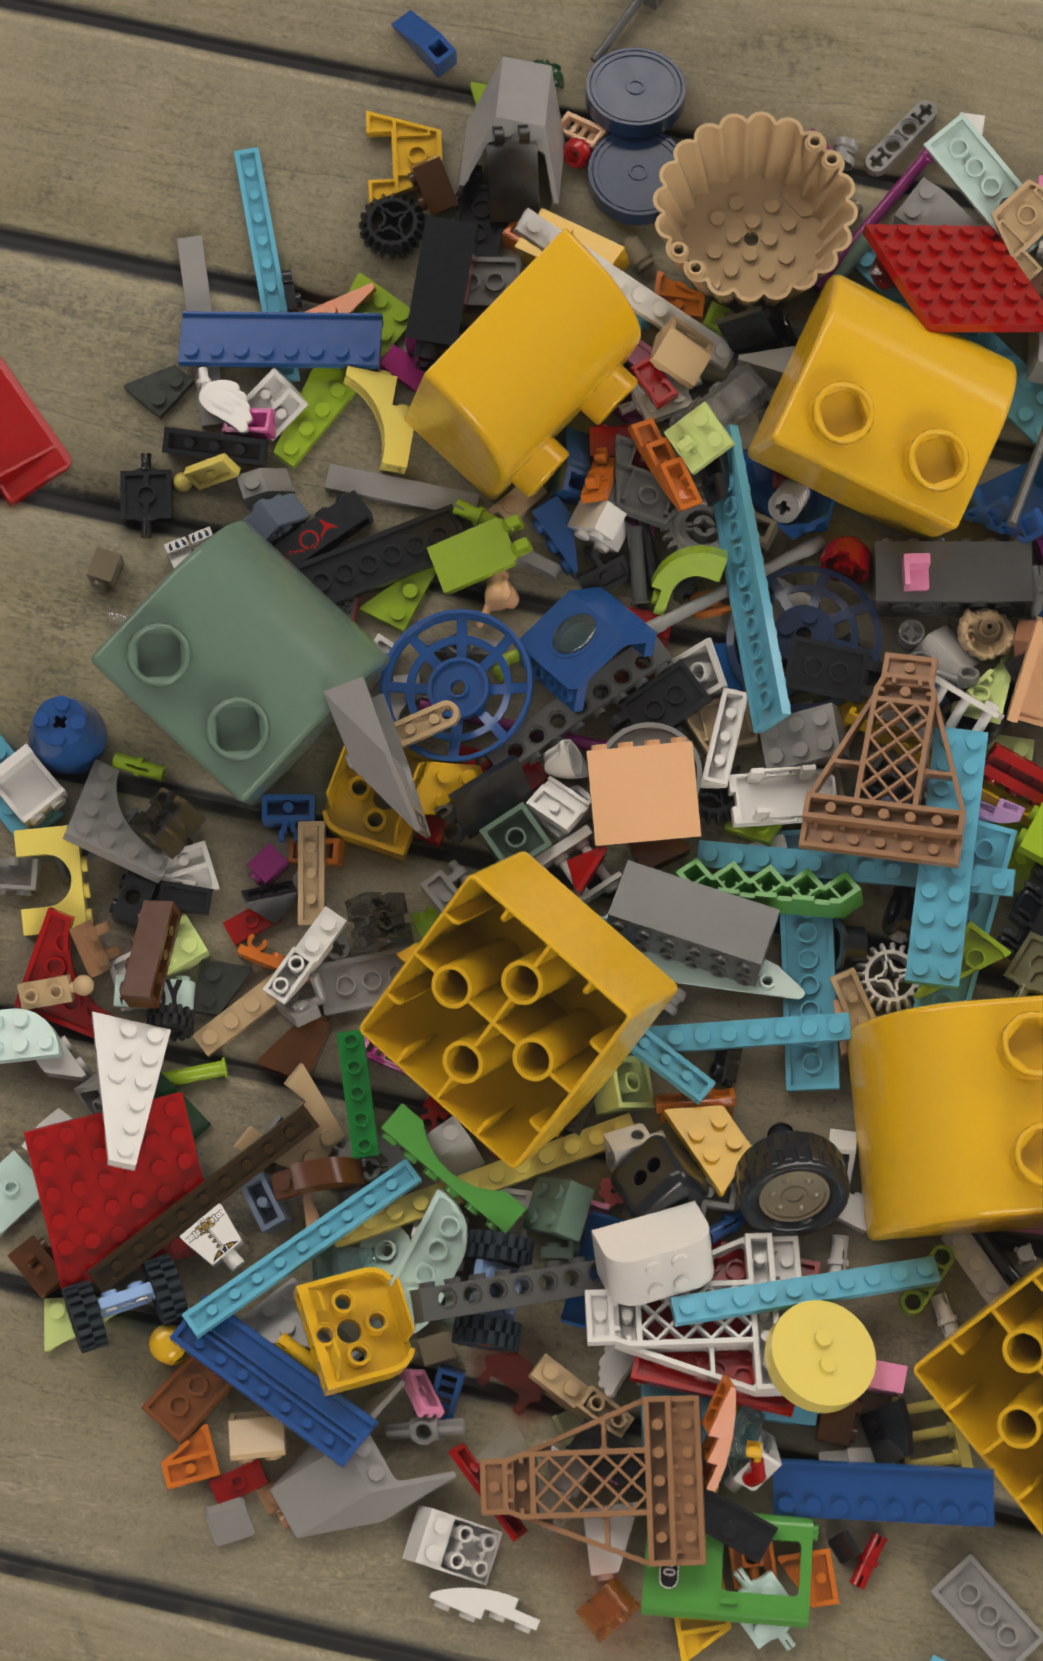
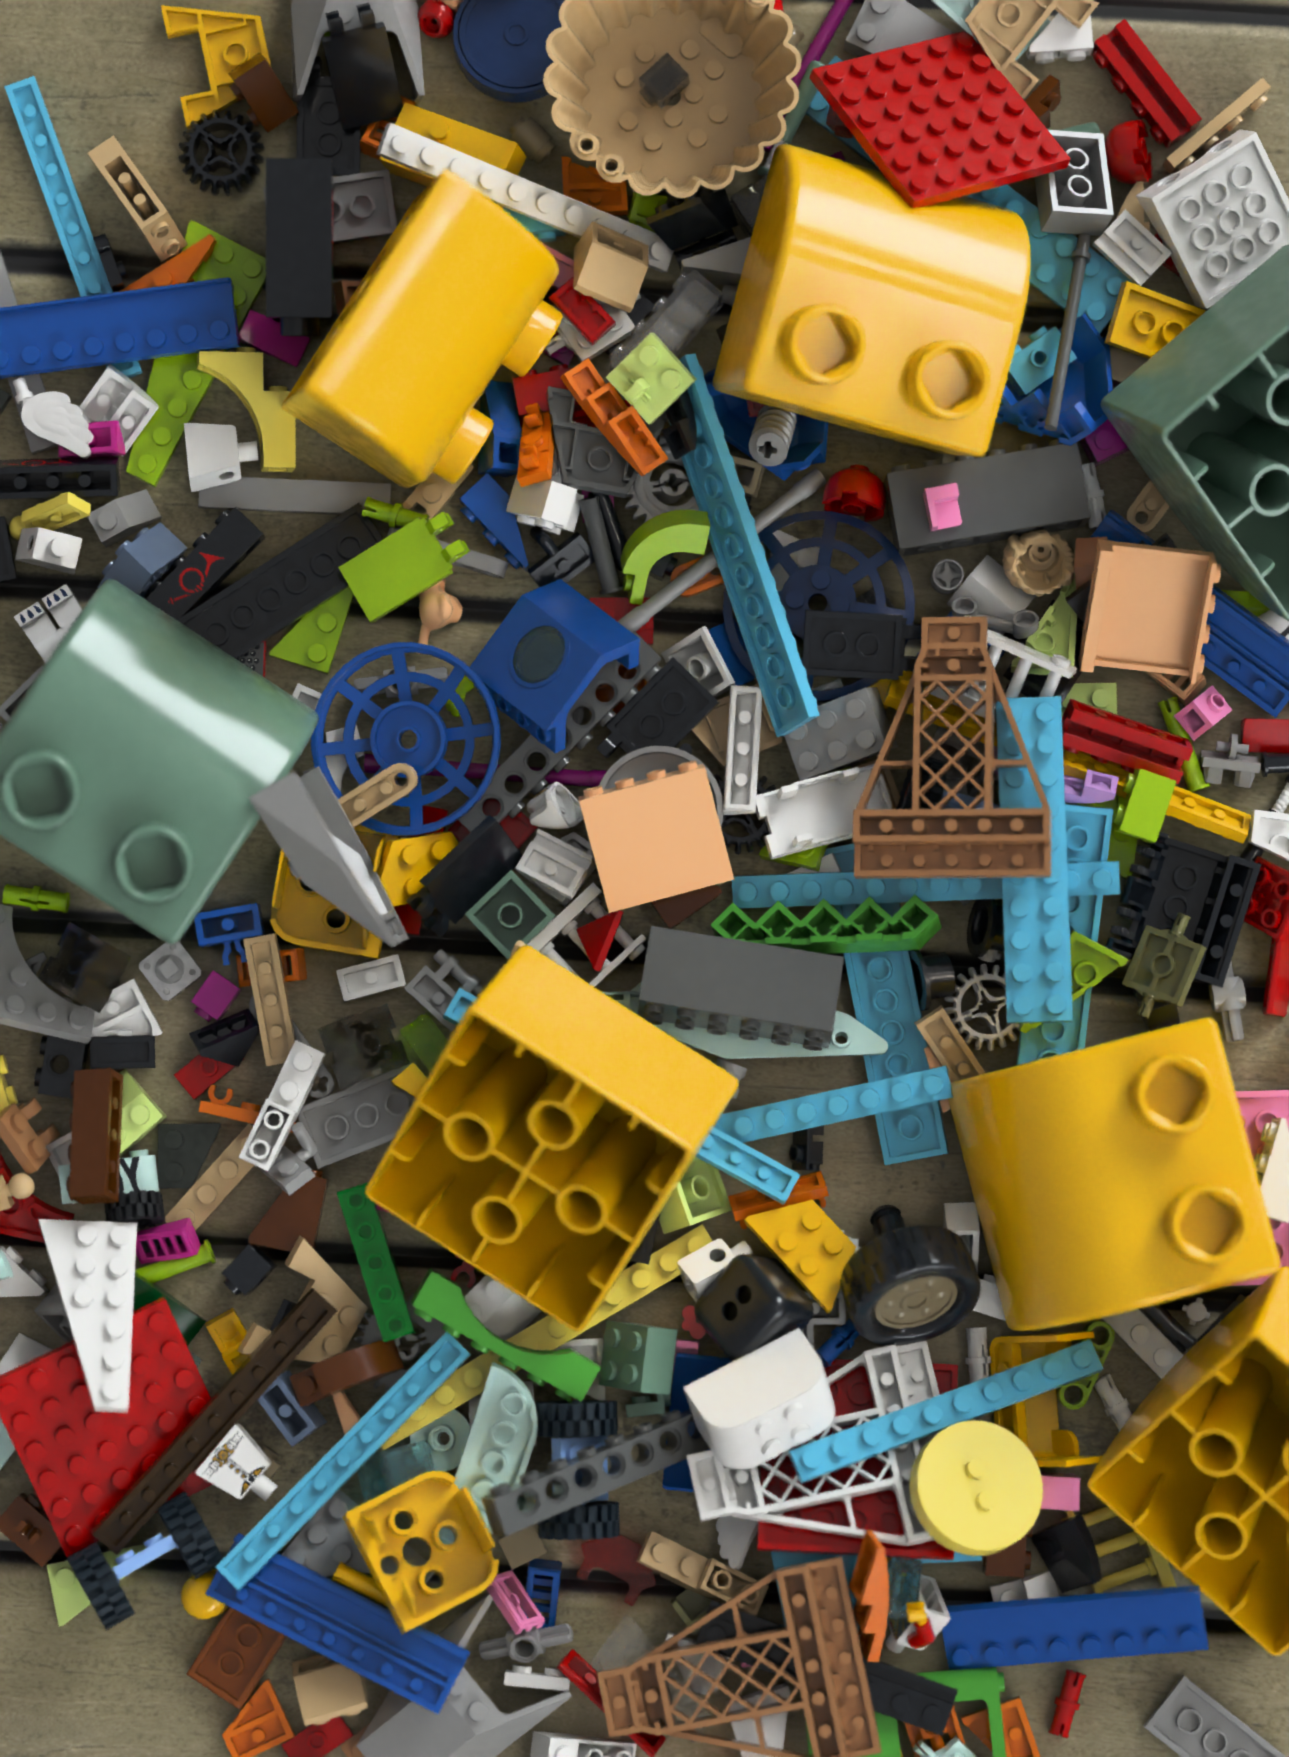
camera: 15 degrees left, 10 degrees up
(202, 498) = (49, 549): none -> white torso
(210, 1050) = (182, 1228): none -> dark pink slope
(226, 1135) = (228, 1335): none -> yellow slope
(235, 840) = (170, 970): none -> flat silver piece
(253, 1085) = (248, 1270): none -> black brick
(321, 248) = (137, 198): none -> tan slope
(345, 449) = (215, 454): none -> white torso
(395, 872) = (371, 977): none -> white plate
(418, 1458) = (523, 1677): none -> white plate
(747, 224) = (663, 81): none -> clear smoke brick
(843, 1546) = (1036, 1692): black slope -> none
(880, 1311) = (1036, 1418): none -> yellow windscreen
(1005, 479) = (1035, 360): none -> medium azure brick

